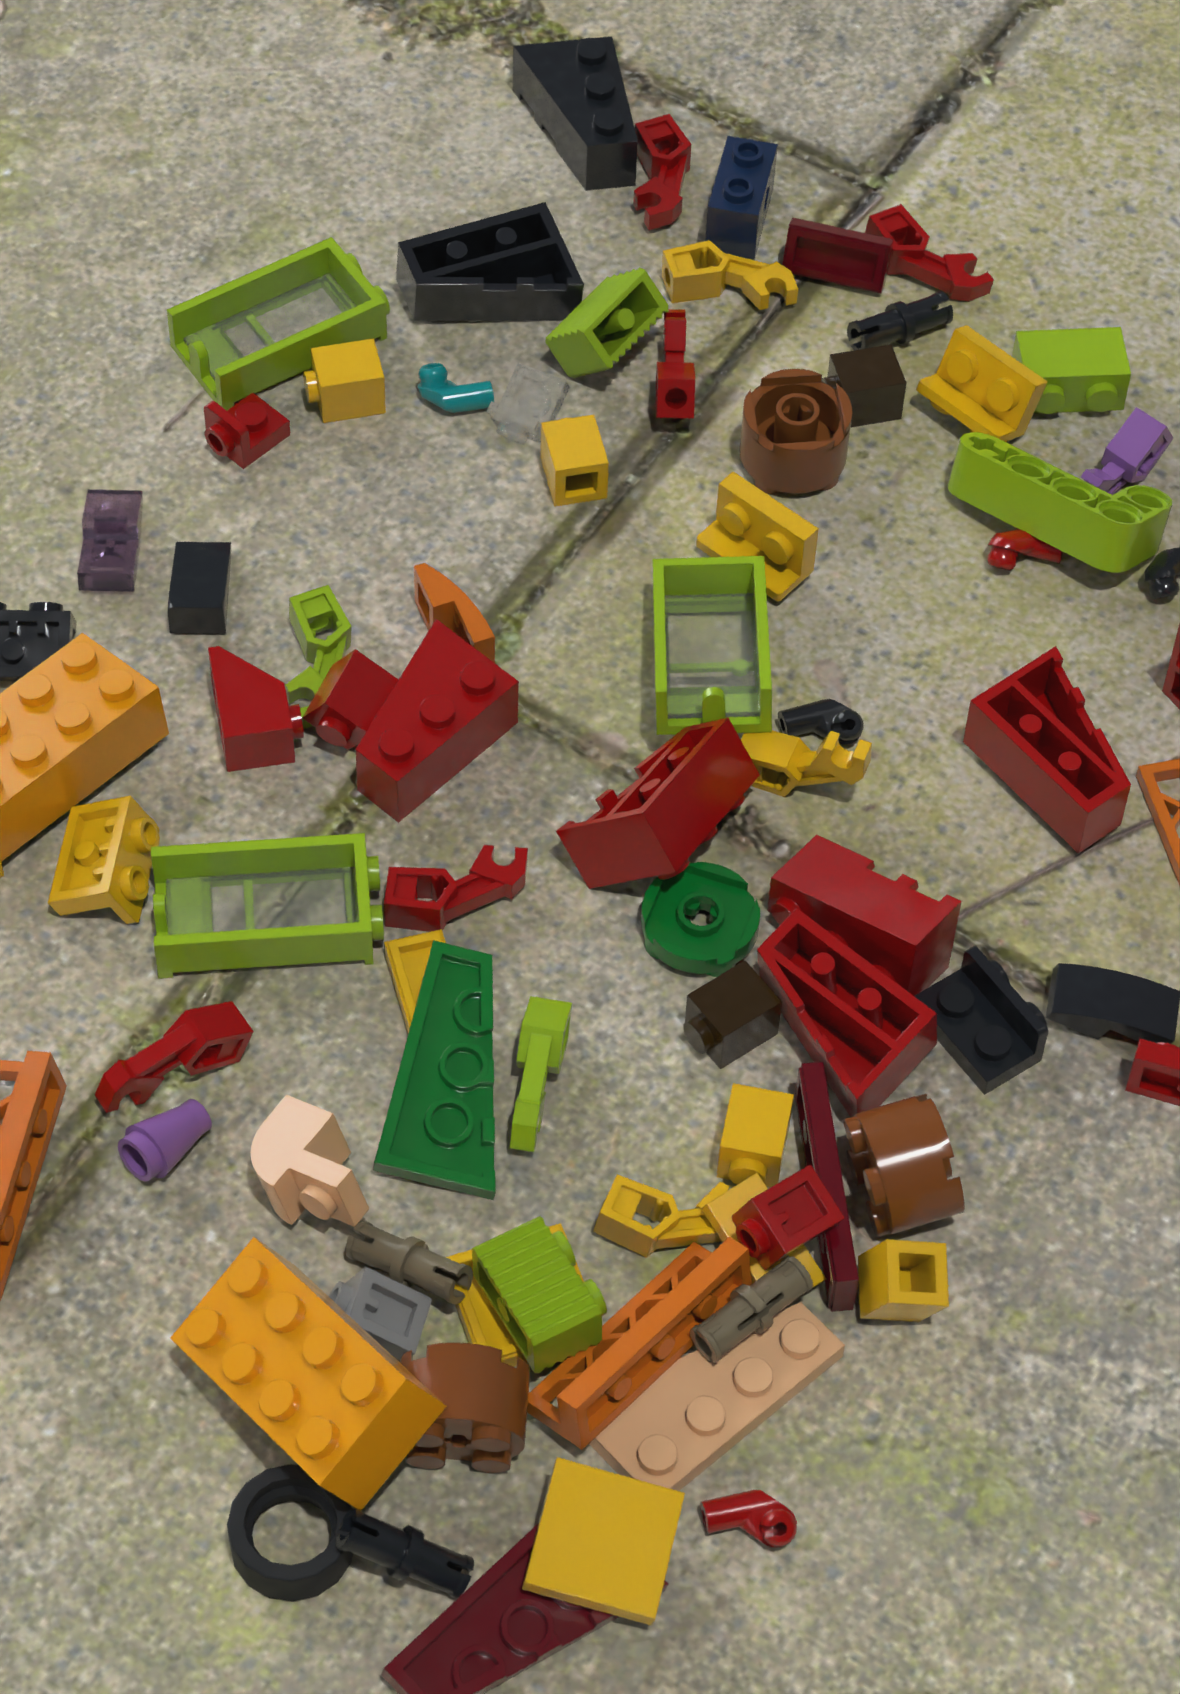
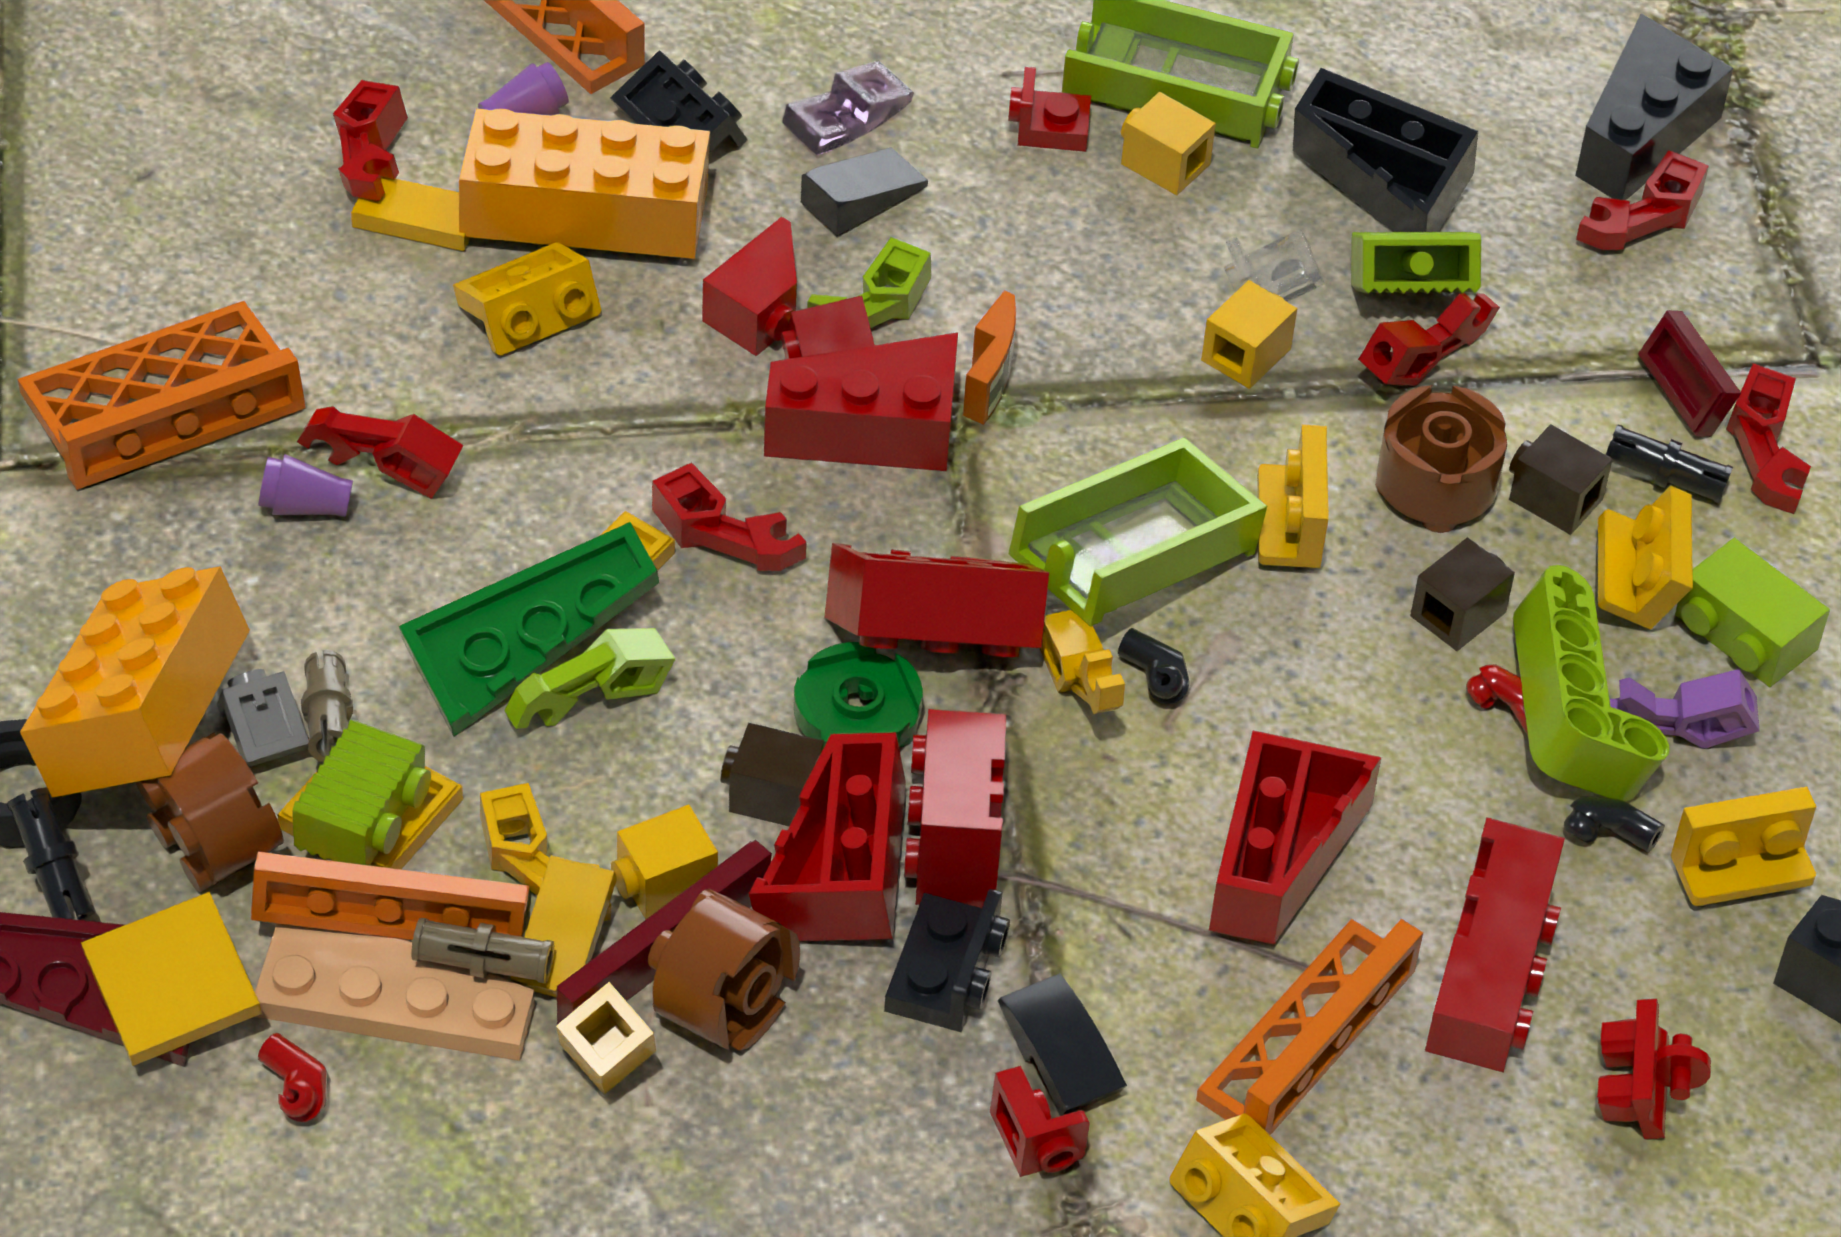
camera: 50 degrees right, 5 degrees down
(264, 903) = (583, 414): lime door -> none
(301, 1167) = (348, 576): light nougat brick -> none
(449, 395) = (1235, 216): teal arm -> none
(705, 271) = (1567, 301): yellow piece -> none
(741, 196) = (1674, 268): dark blue brick -> none
(786, 1217) = (579, 907): red bracket -> none
(918, 508) = (1462, 594): none -> dark brown brick

